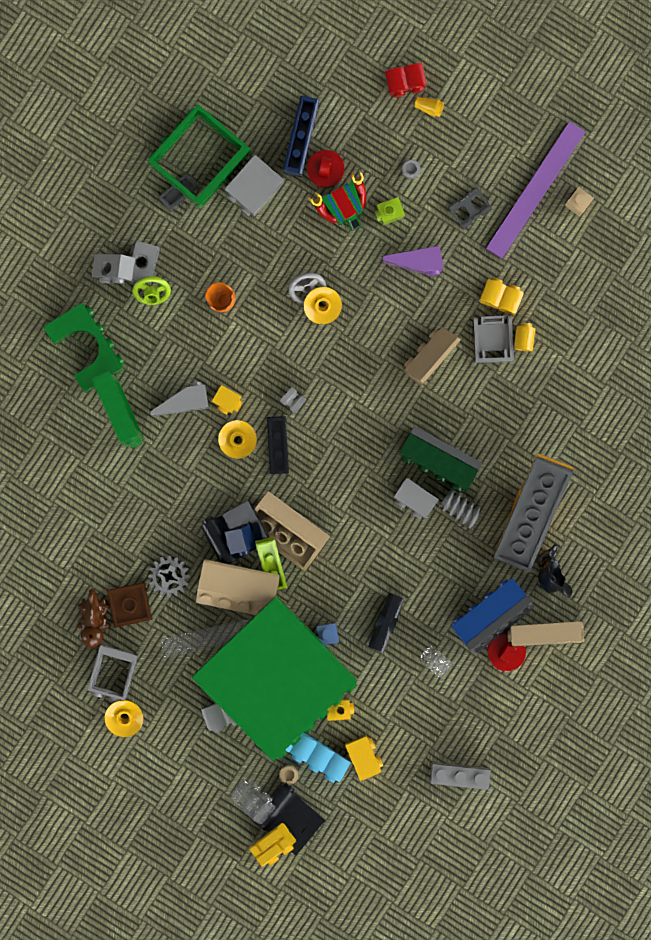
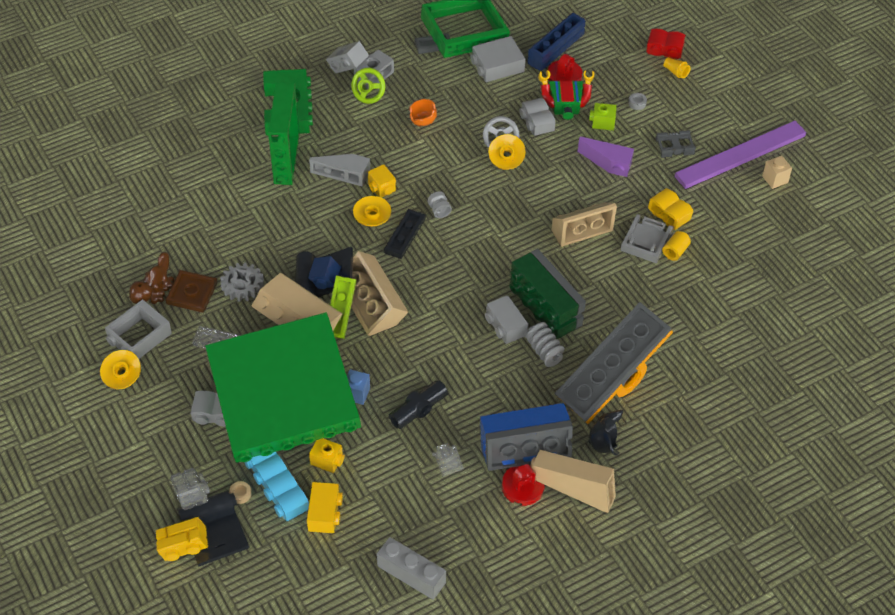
camera: 25 degrees right, 35 degrees down
(328, 243) = (537, 116): none -> light grey brick

